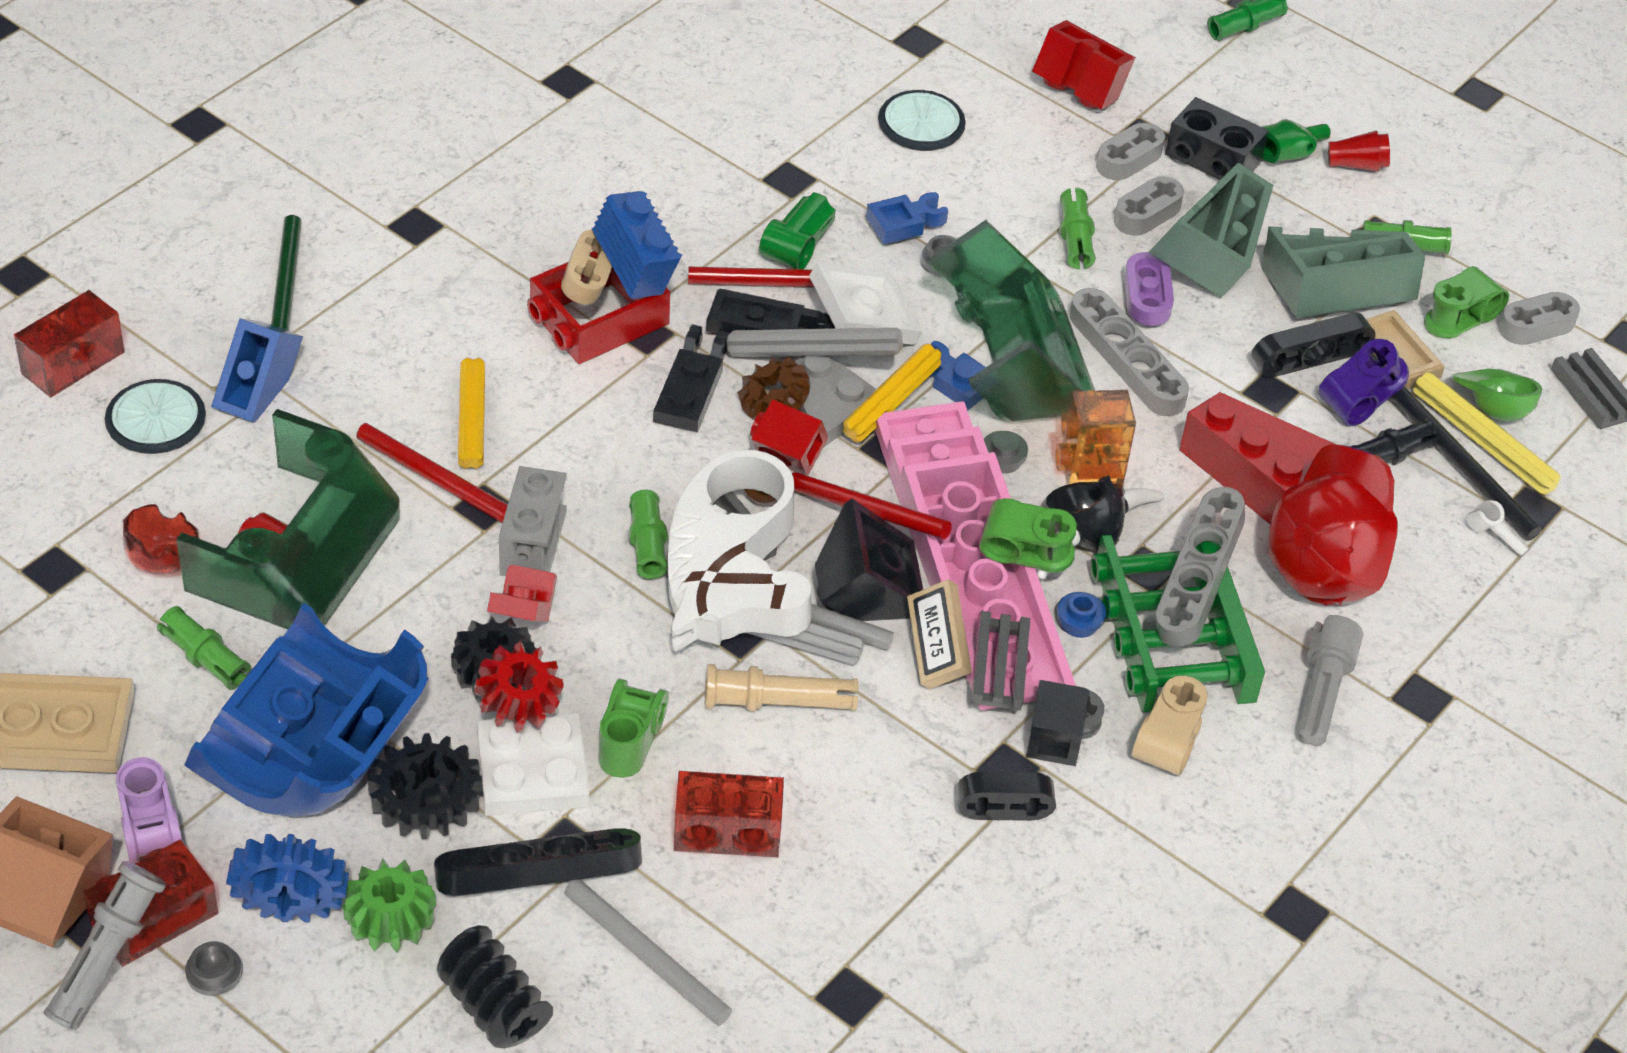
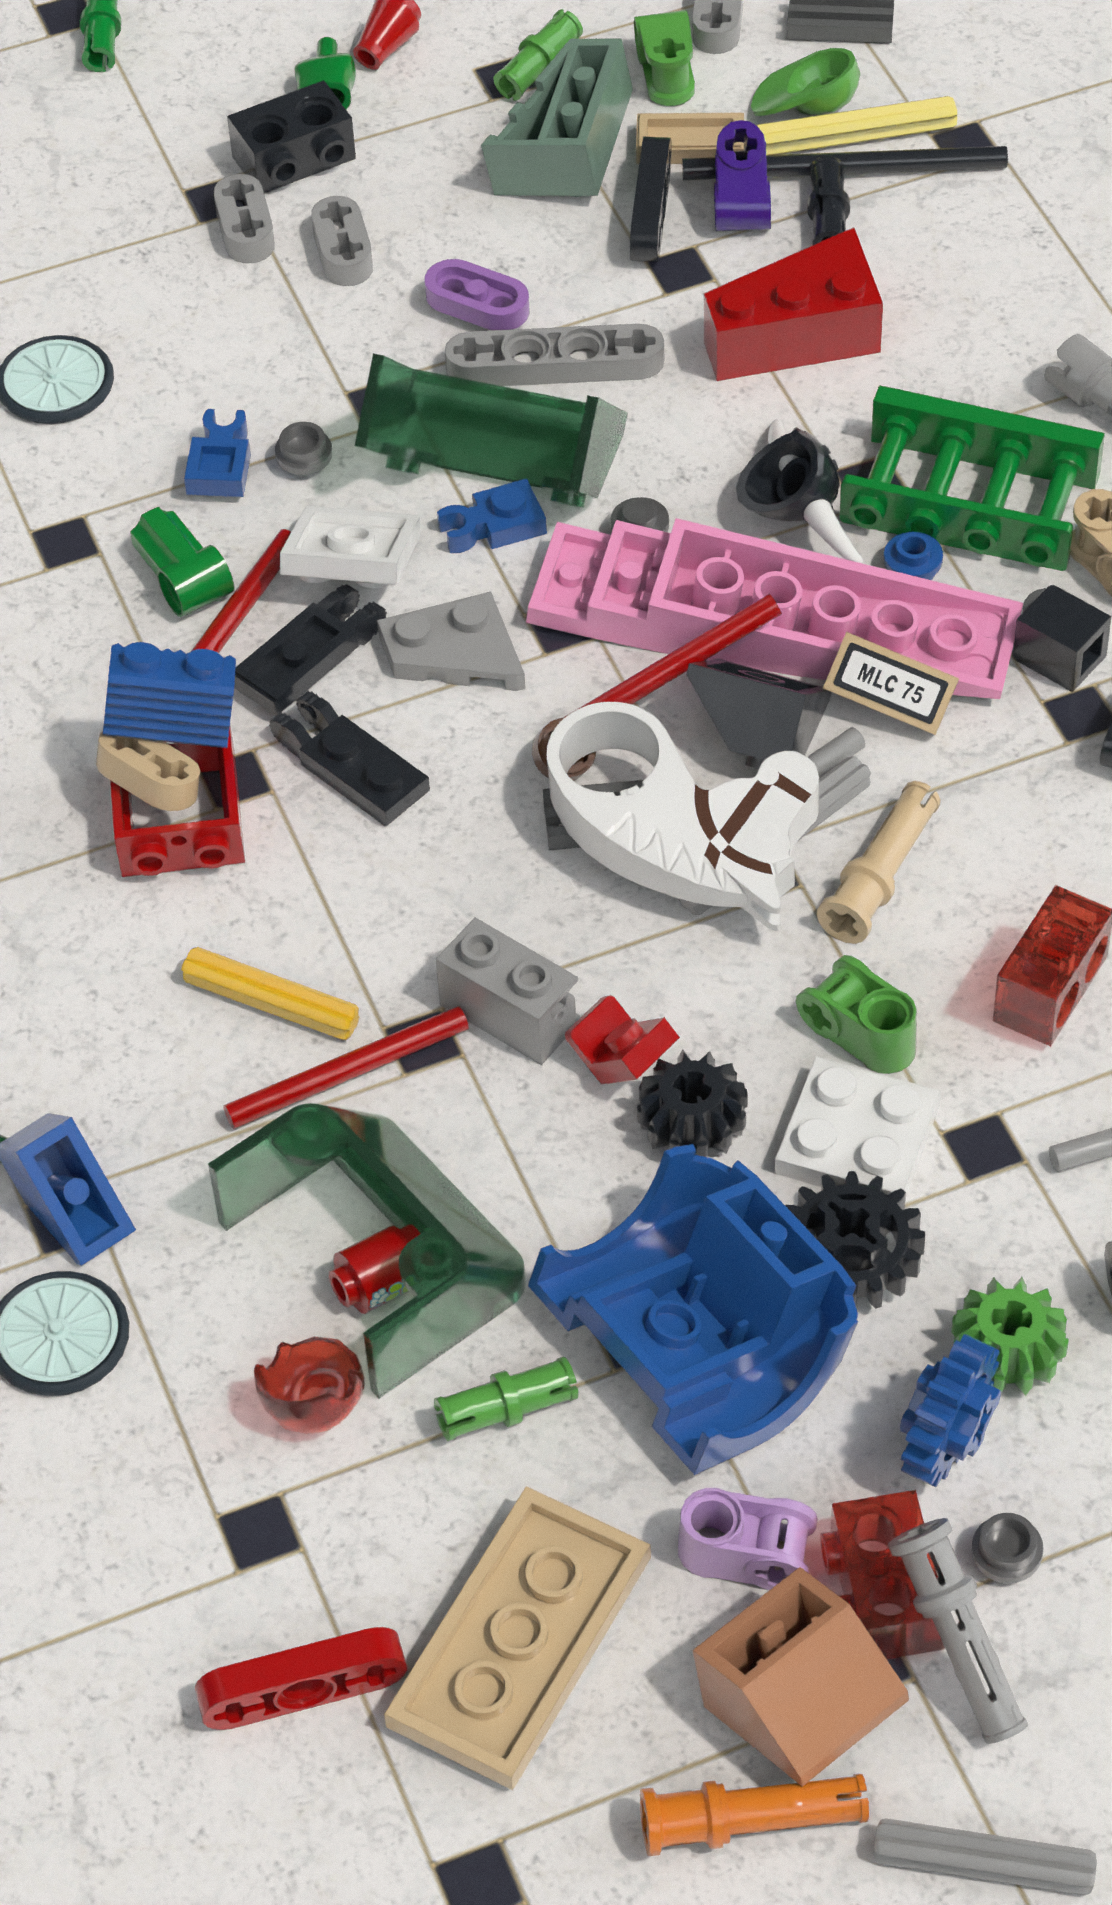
camera: 55 degrees left, 5 degrees up
(513, 702) = (787, 1082): red gear -> none
(538, 861) = (1003, 1172): black beam -> none
(648, 534) = (578, 891): bright green pin -> none
(789, 436) = (519, 698): red brick -> none
(790, 376) = (416, 711): reddish brown gear -> none
(814, 342) = (391, 611): light grey axle -> none
(892, 392) = (503, 579): yellow axle -> none
(1004, 628) = (968, 638): dark grey tile -> none
(1025, 532) = (825, 534): bright green piece -> none
(1077, 228) = (341, 314): bright green pin -> none
(1083, 63) = (96, 188): red brick -> none
(1096, 436) = (703, 425): clear orange brick -> none
(1204, 566) = (949, 411): light grey beam -> none
(1219, 232) = (448, 189): sand green wedge -> none
(1336, 527) = (956, 283): red piece -> none
(1493, 520) = (974, 175): white hand -> none

